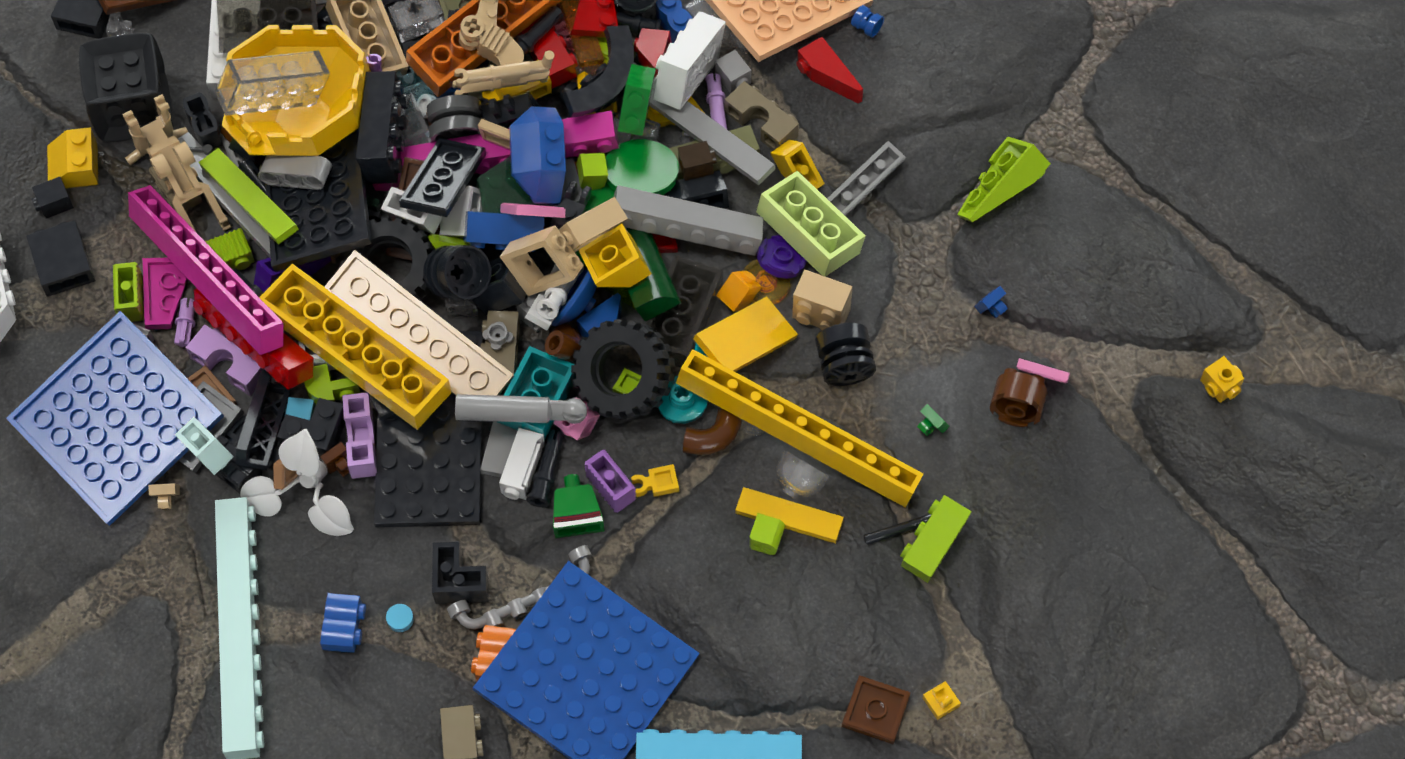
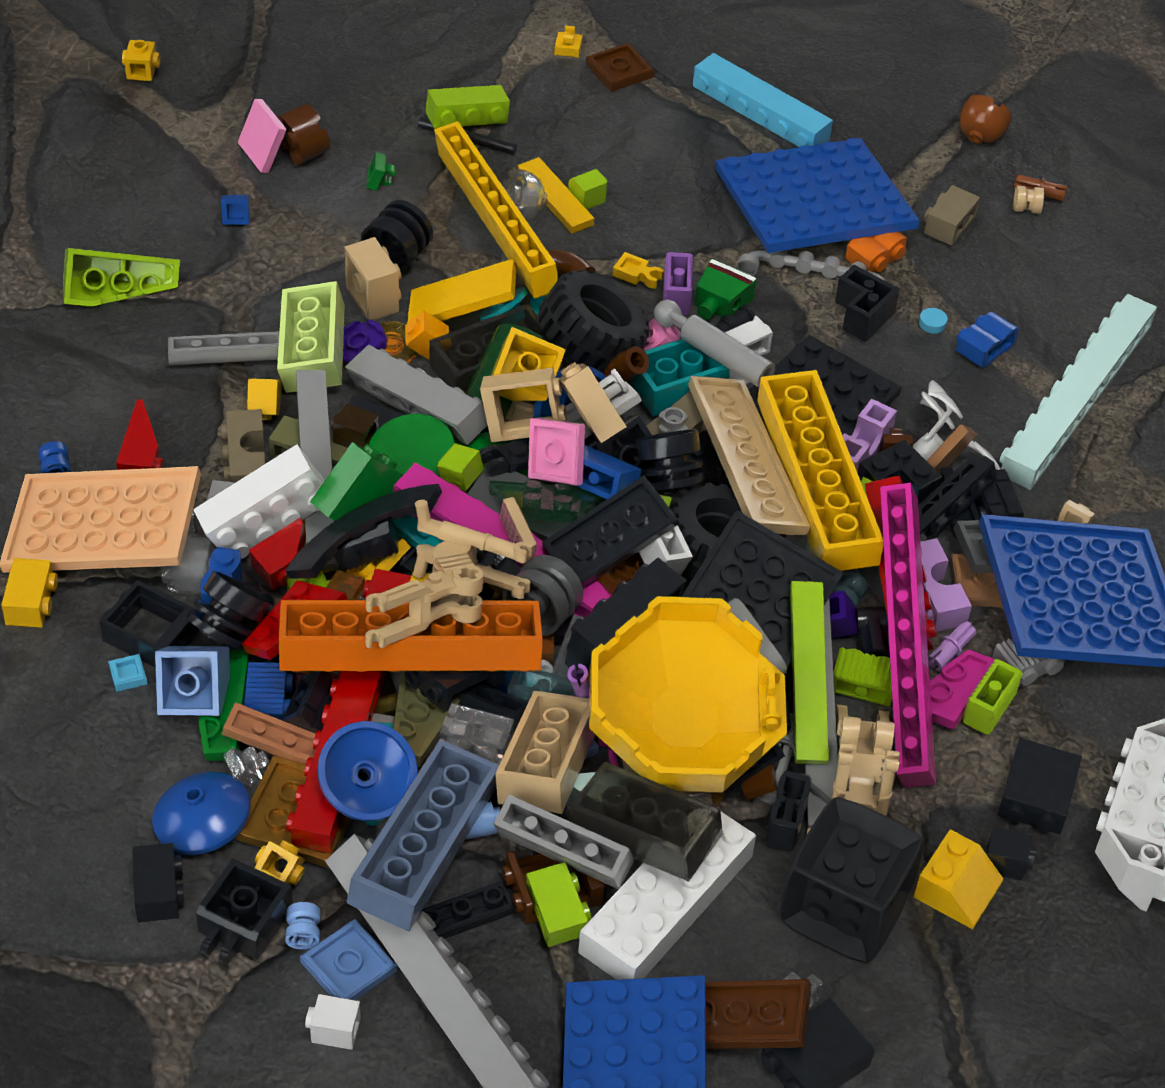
camera: 145 degrees left, 15 degrees down
(204, 445) = (1020, 494): light aqua slope -> none
(272, 82) = (709, 702): clear brick -> none
(539, 154) = (494, 486): blue wedge -> none

